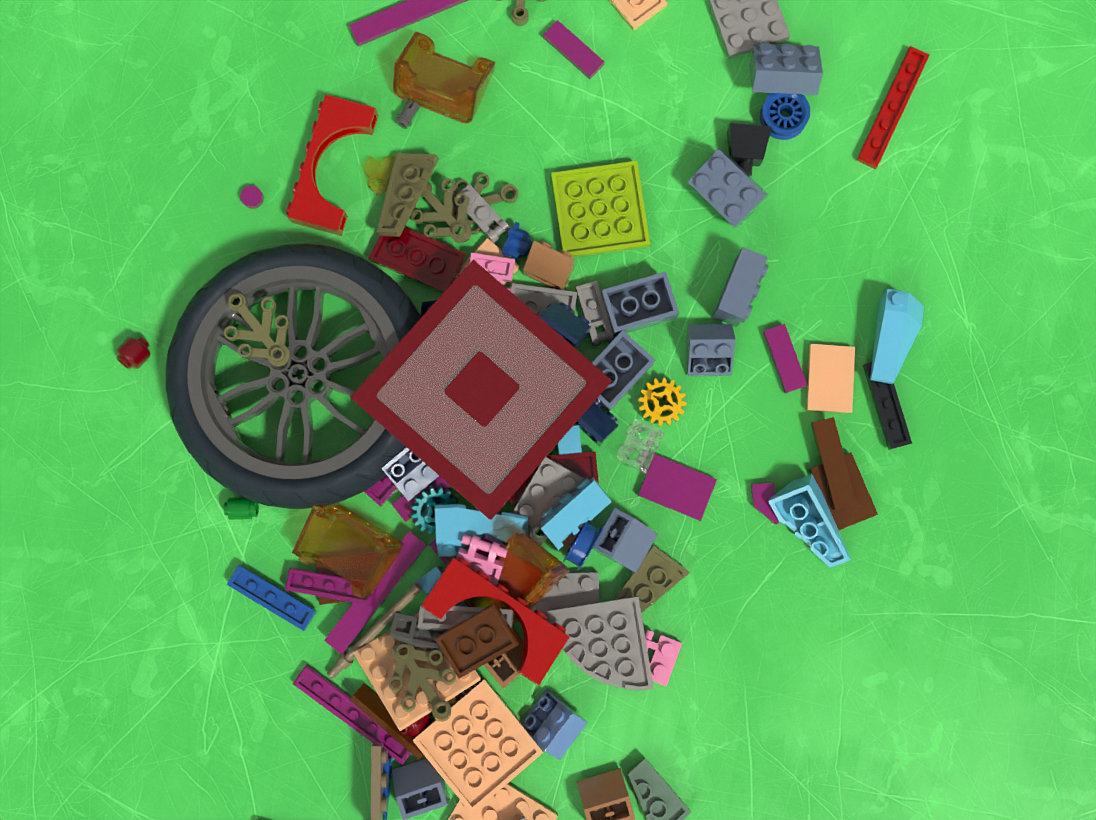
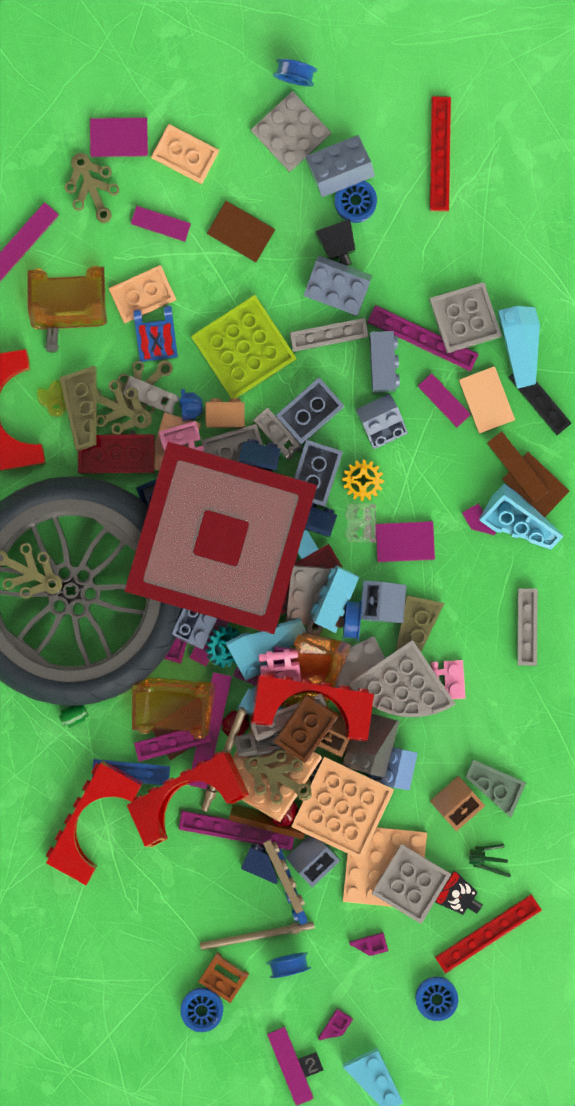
camera: 25 degrees left, 5 degrees up
(162, 654) = (67, 853): none -> red arch
(270, 648) = (150, 809): none -> red arch
(356, 766) = (259, 863): none -> dark blue slope
(399, 591) = (228, 721): none -> dark red head
(514, 159) = (156, 338): none -> flag
(521, 111) = (143, 292): none -> light nougat tile
(538, 704) = (375, 753): none -> dark grey slope
(651, 93) = (241, 231): none -> reddish brown tile
(695, 236) = (329, 334): none -> light grey plate
(768, 640) = (527, 627): none -> light grey plate
(793, 286) = (420, 337): none -> magenta tile
(846, 282) = (465, 317): none -> light grey plate

